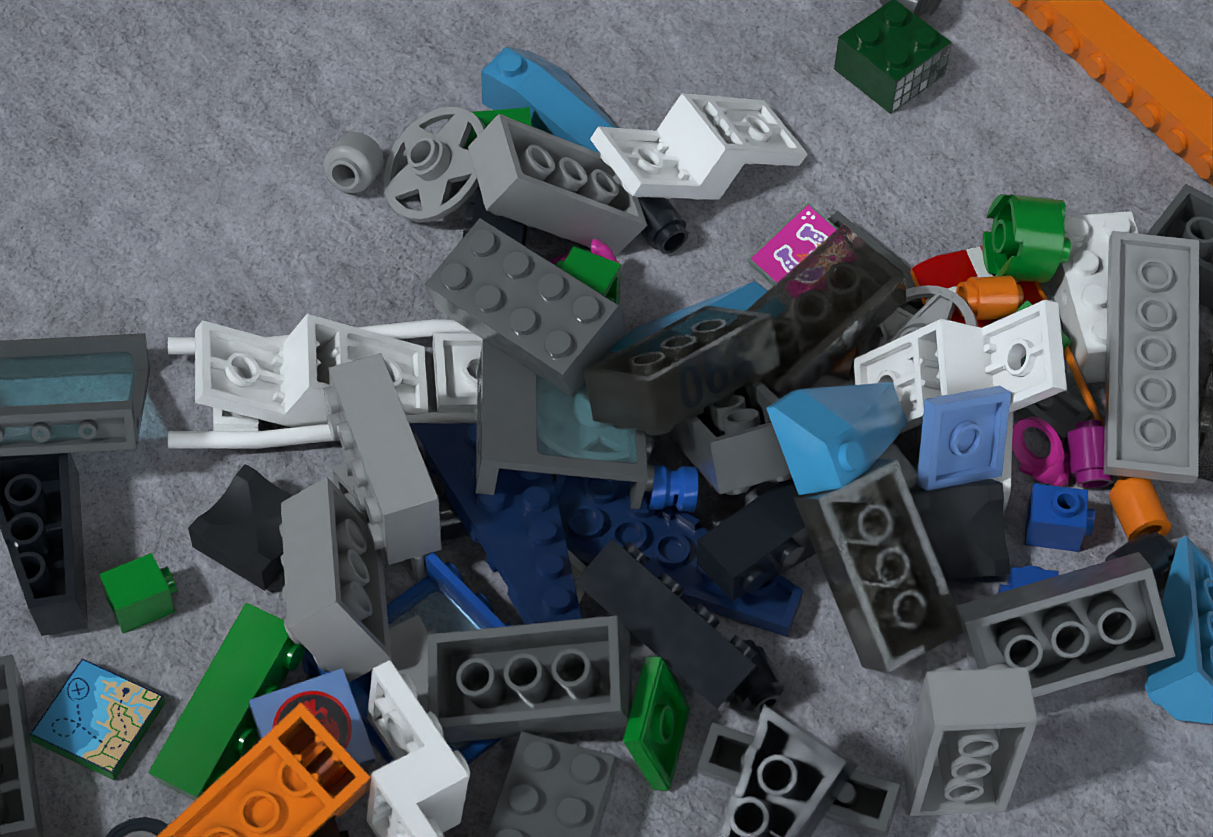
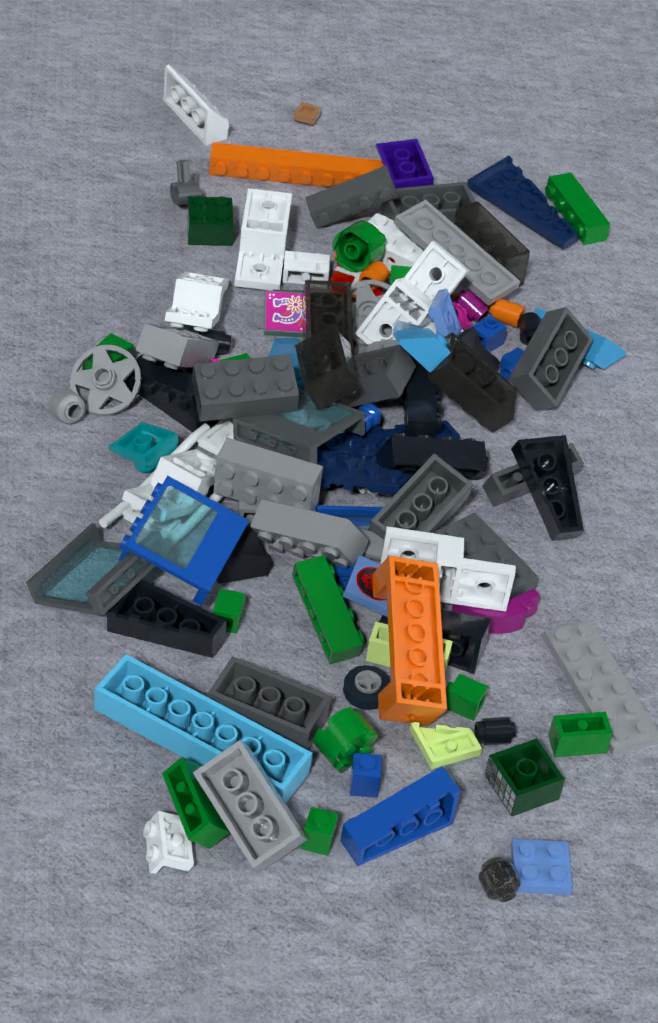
camera: 55 degrees left, 10 degrees down
(97, 719) = (279, 657): tile -> none
(166, 446) = (185, 535): none -> panel
(363, 288) = (145, 446): none -> teal slope
(555, 101) = (90, 329): dark azure wedge -> none
(656, 724) = (477, 500): green tile -> none
(915, 131) = (263, 239): none -> white bracket
(930, 215) = (305, 266): none -> white brick
(968, 740) = (580, 403): light grey brick -> none
(1126, 161) = (351, 197): none -> dark grey brick

